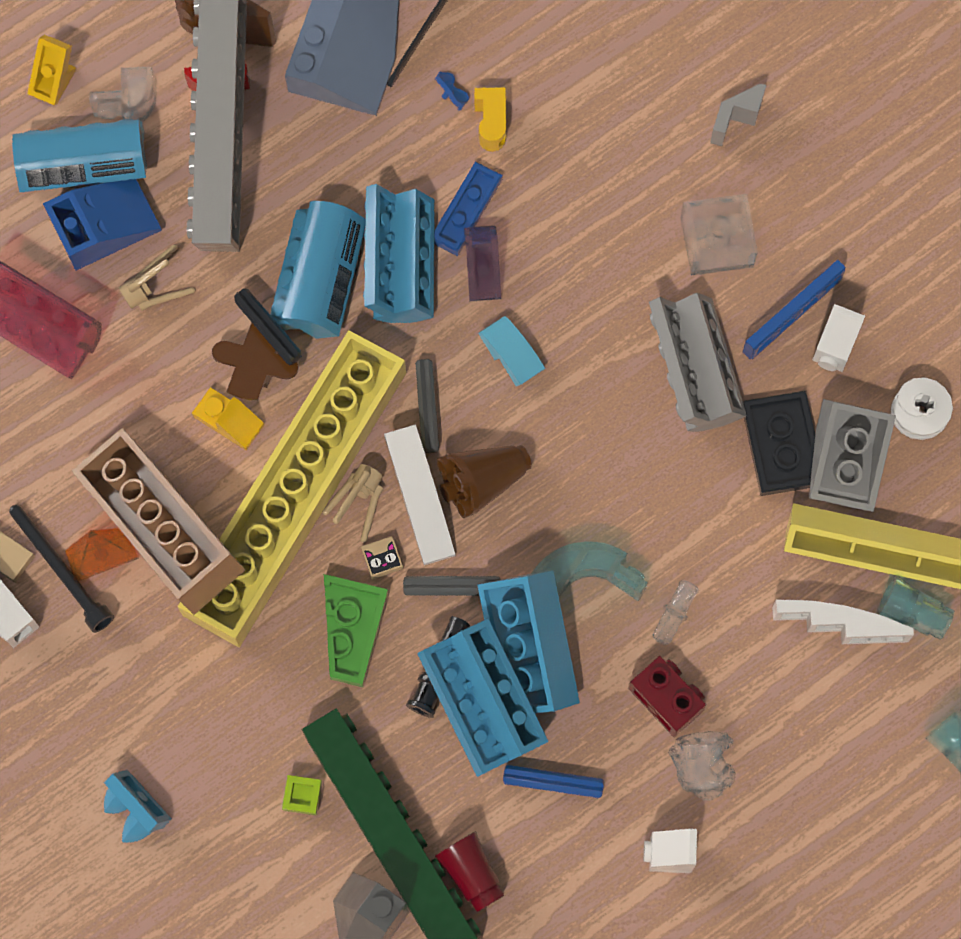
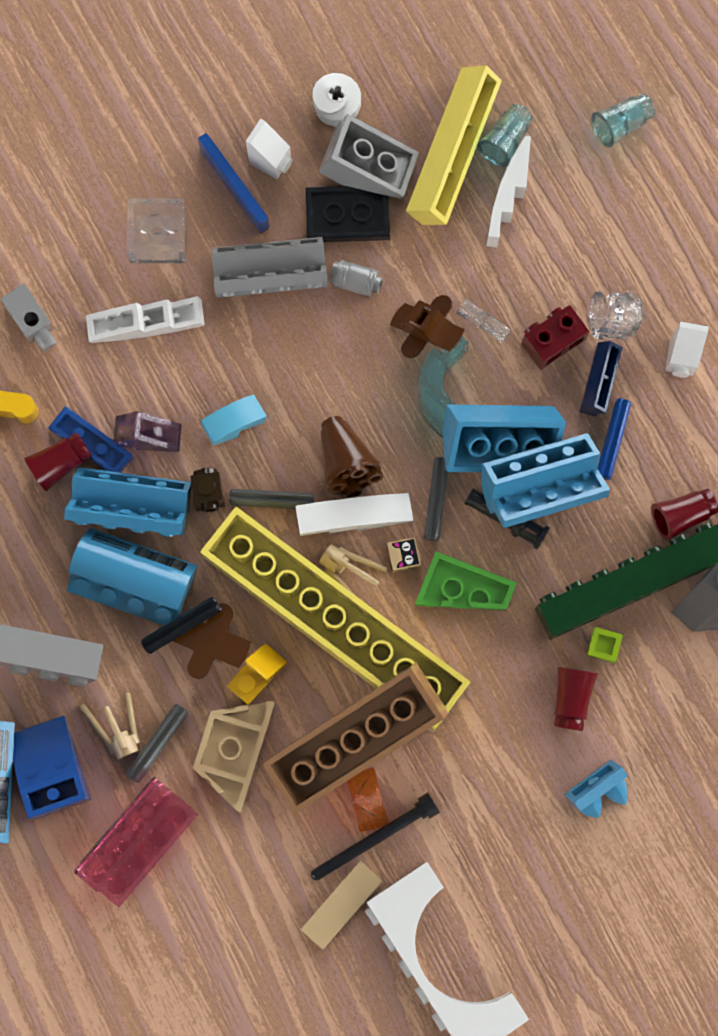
camera: 85 degrees left, 5 degrees up
(141, 326) = (157, 743): none -> dark grey axle
(141, 403) = (233, 749): none -> tan wing
(236, 764) = (573, 697): none -> dark red plant
(425, 334) = (207, 490): none -> dark brown brick
(435, 173) = (58, 460): none -> dark red plant
(594, 118) = (25, 309): none -> light grey torso
(614, 242) = (145, 321): none -> white slope
(624, 748) = (601, 378): none -> dark blue piece
(655, 547) = (427, 324): none -> reddish brown piece
(702, 460) = (356, 278): none -> light grey head
(740, 108) = (41, 192): light grey slope -> none

